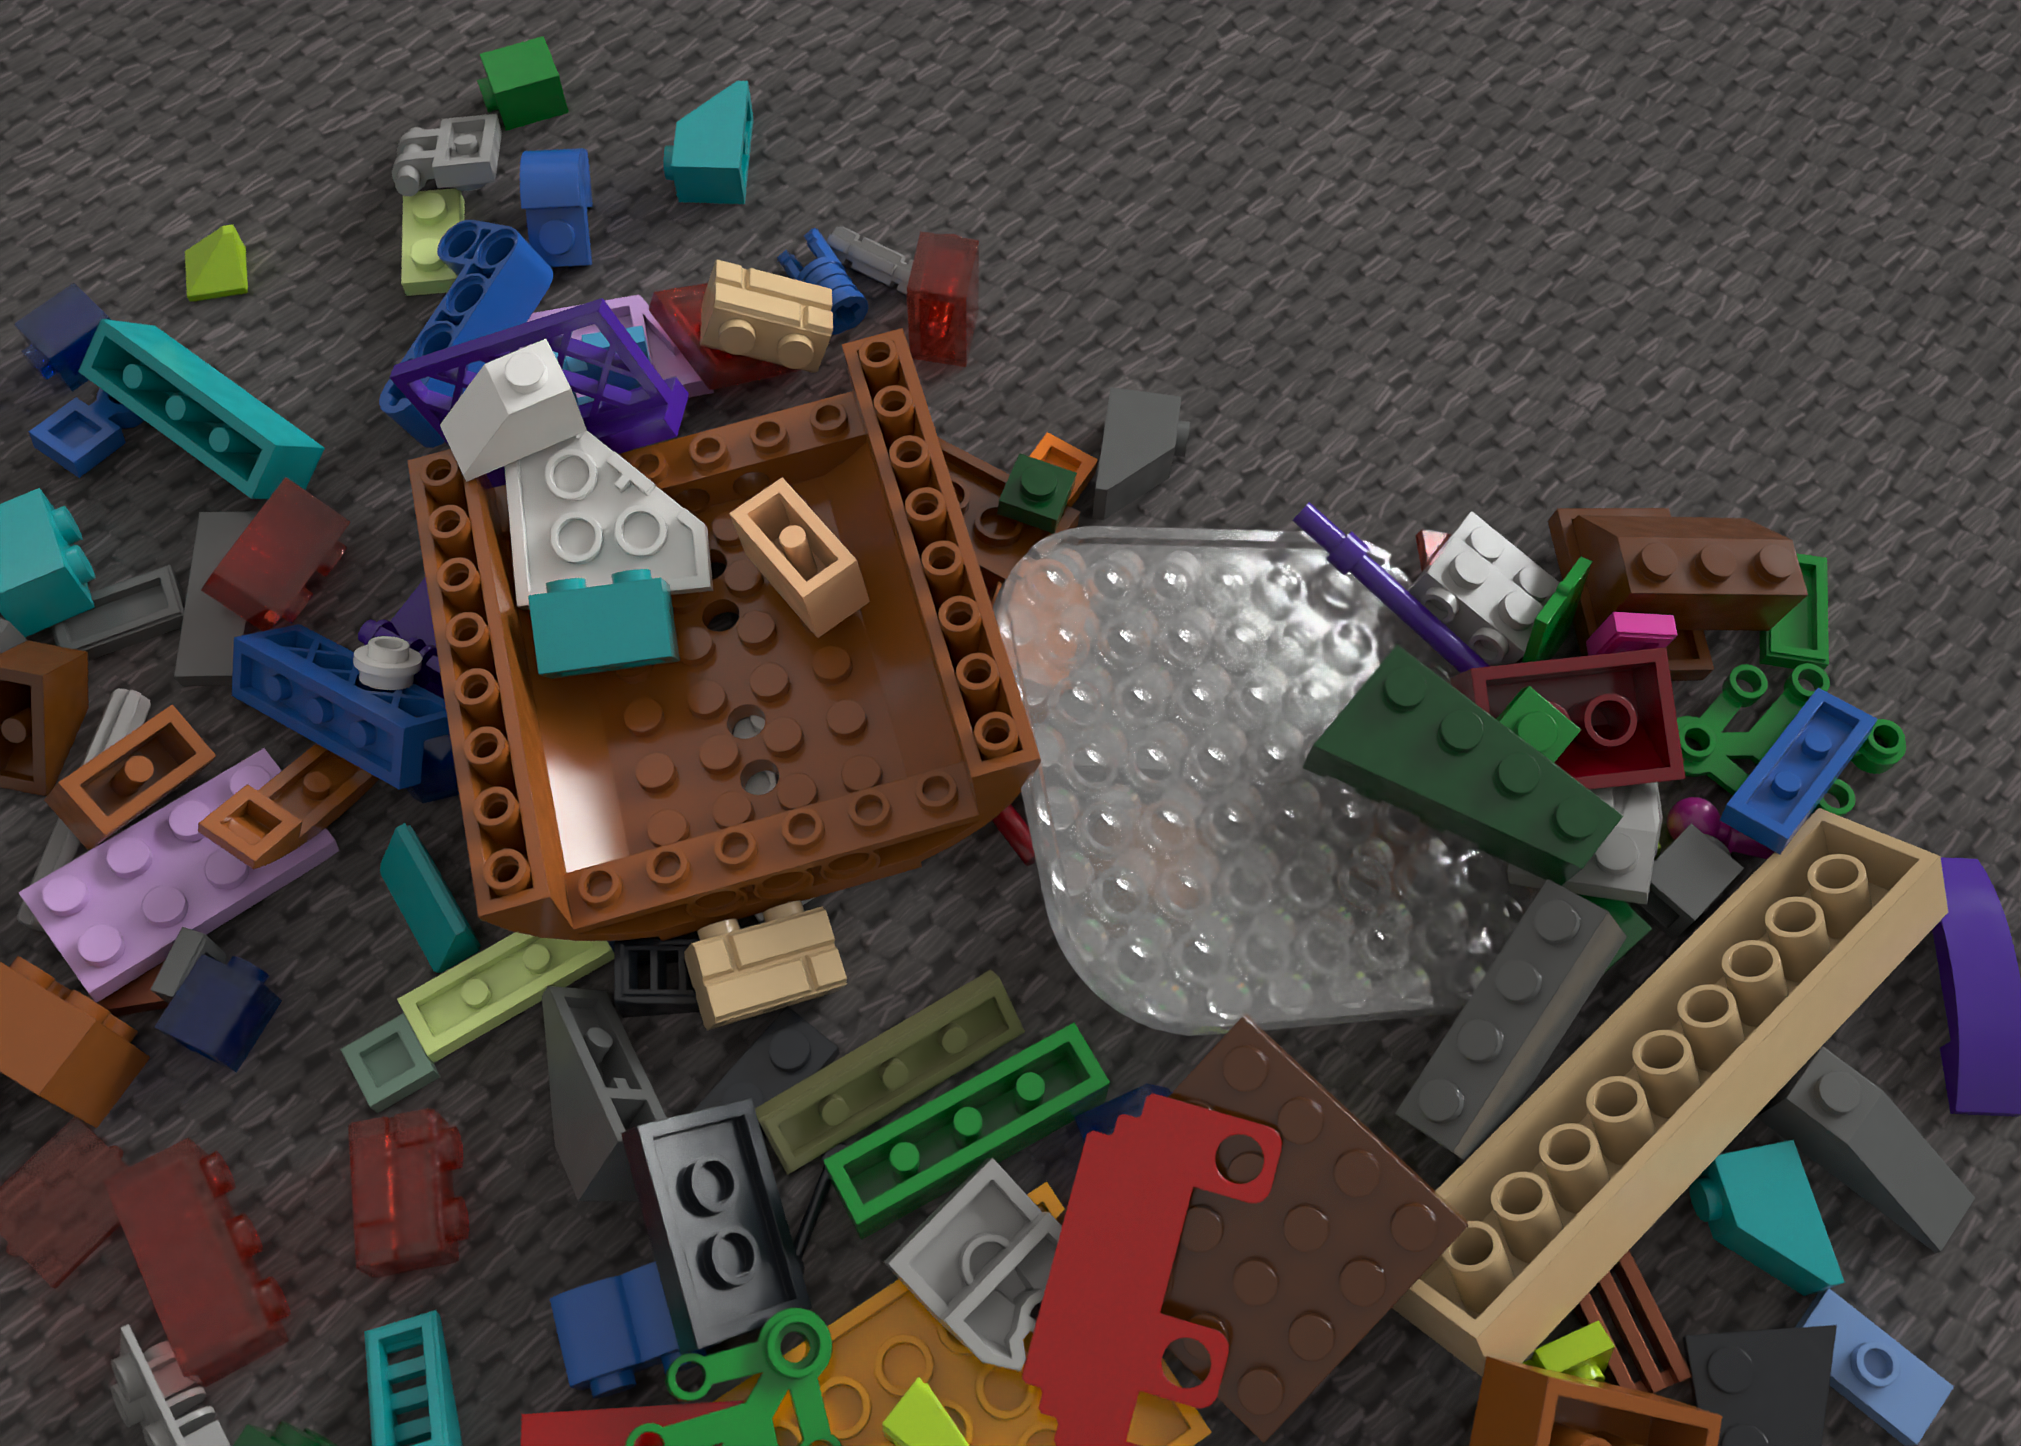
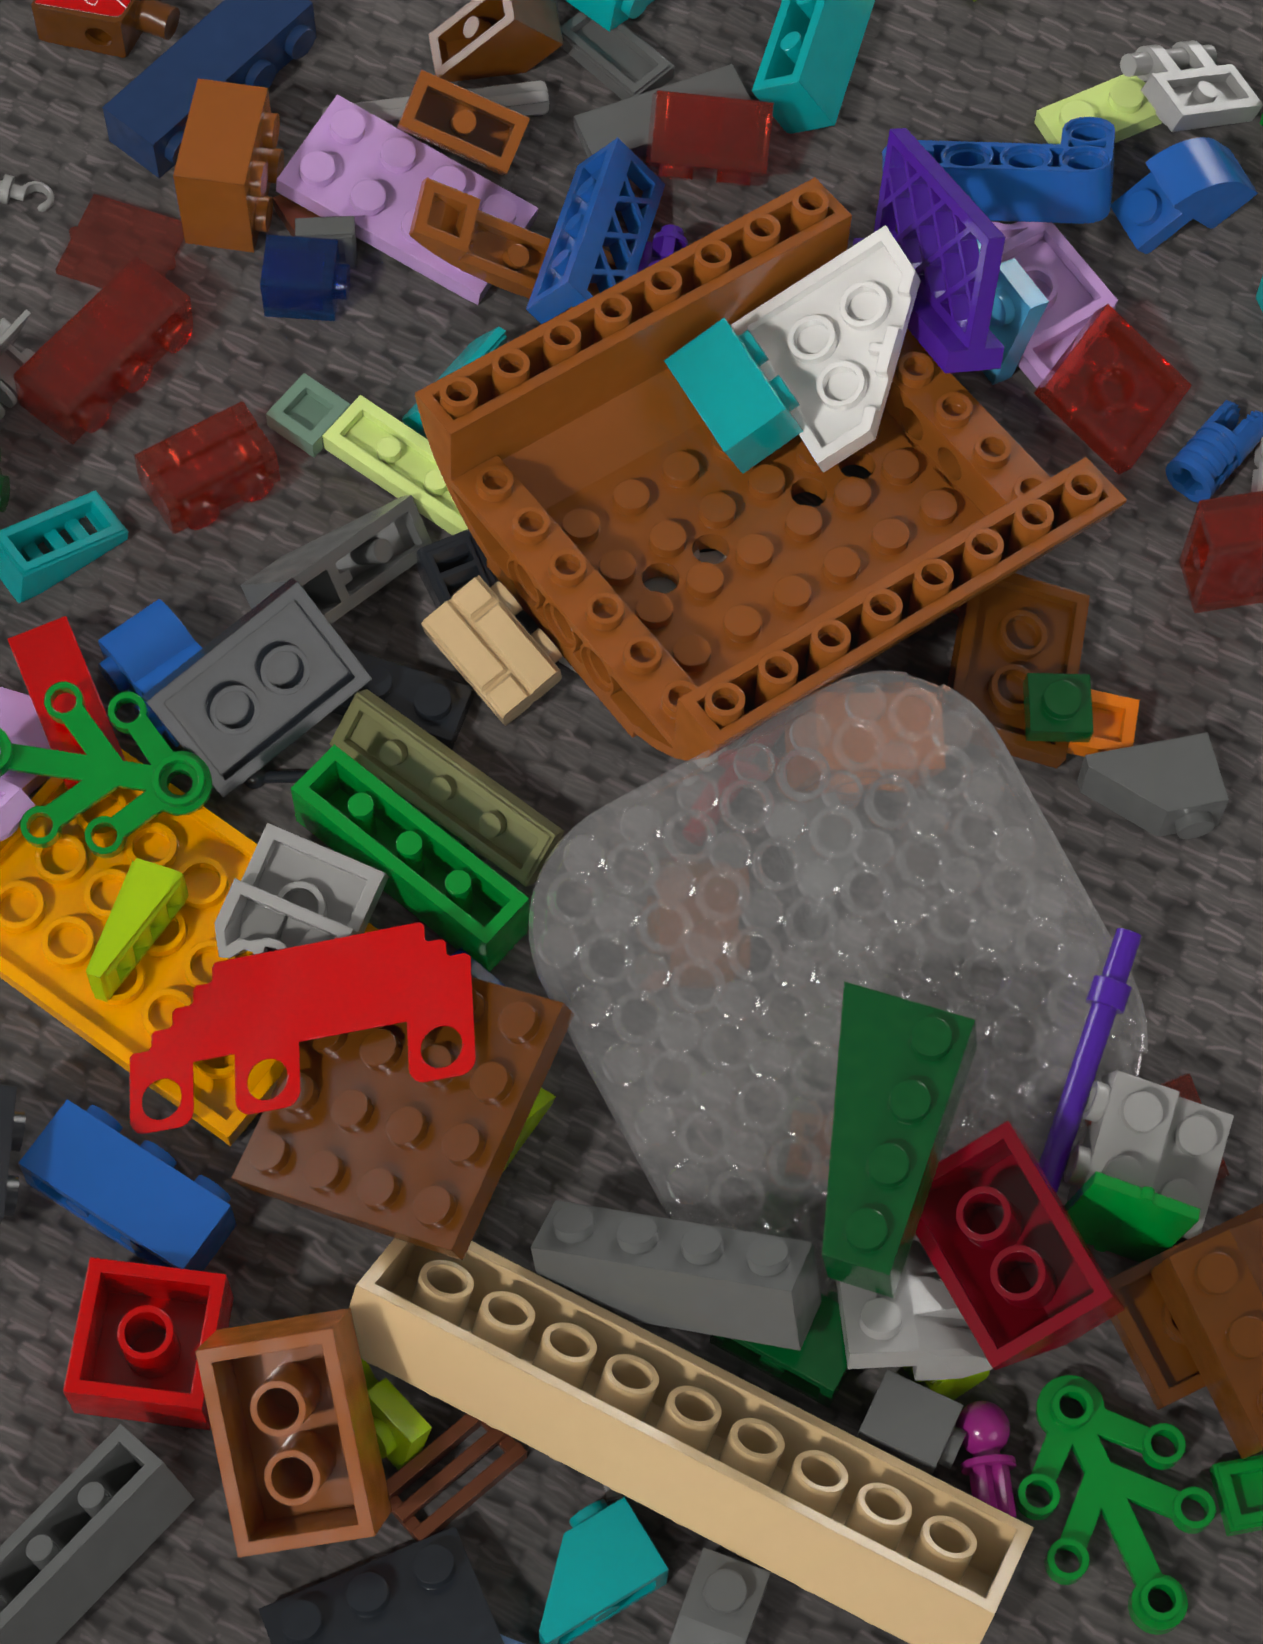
camera: 70 degrees right, 0 degrees up
(387, 663) = (634, 250): white plate -> none
(512, 411) = (886, 230): white slope -> none
(766, 317) = (1127, 405): tan brick -> none
(800, 557) = (865, 514): light nougat brick -> none
(1539, 723) = (964, 1196): green plate -> none
(1631, 633) = (1138, 1291): dark pink tile -> none
(1798, 770) = (1070, 1500): blue plate -> none

